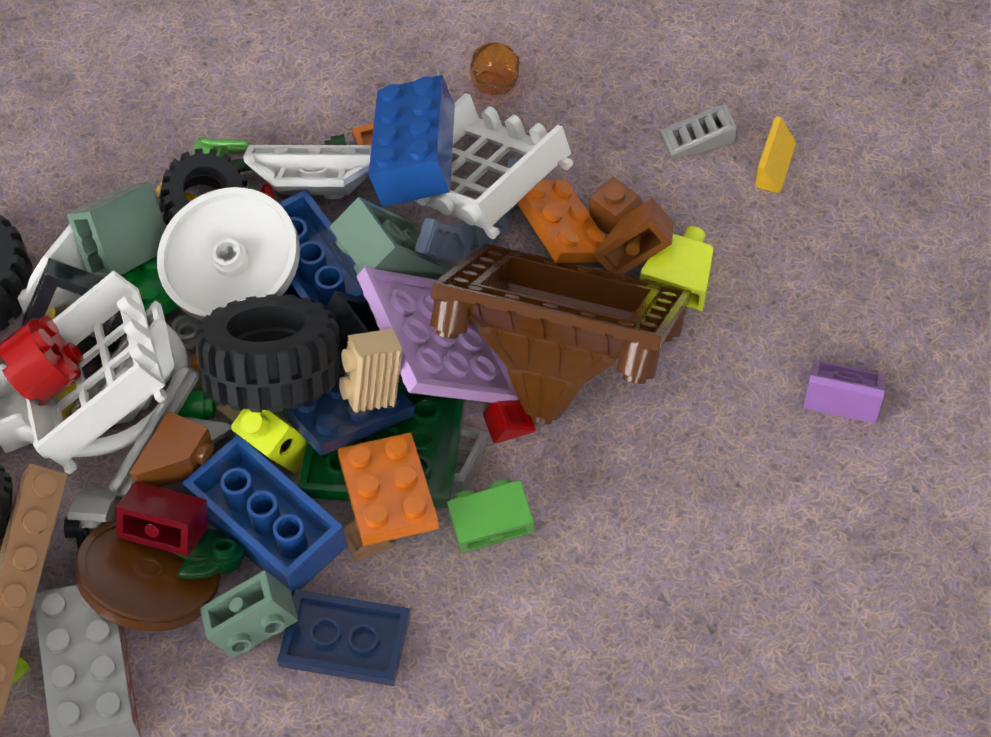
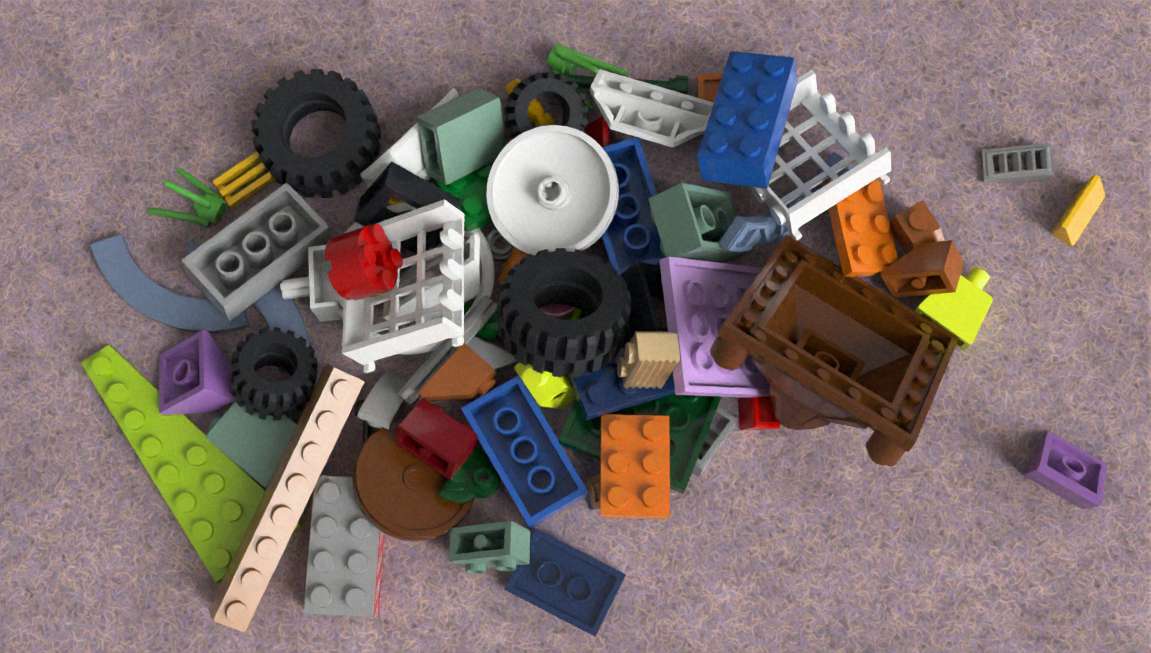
camera: 20 degrees right, 20 degrees up
(490, 515) = (717, 508): bright green brick -> none
(494, 68) = (846, 43): clear orange hair -> none

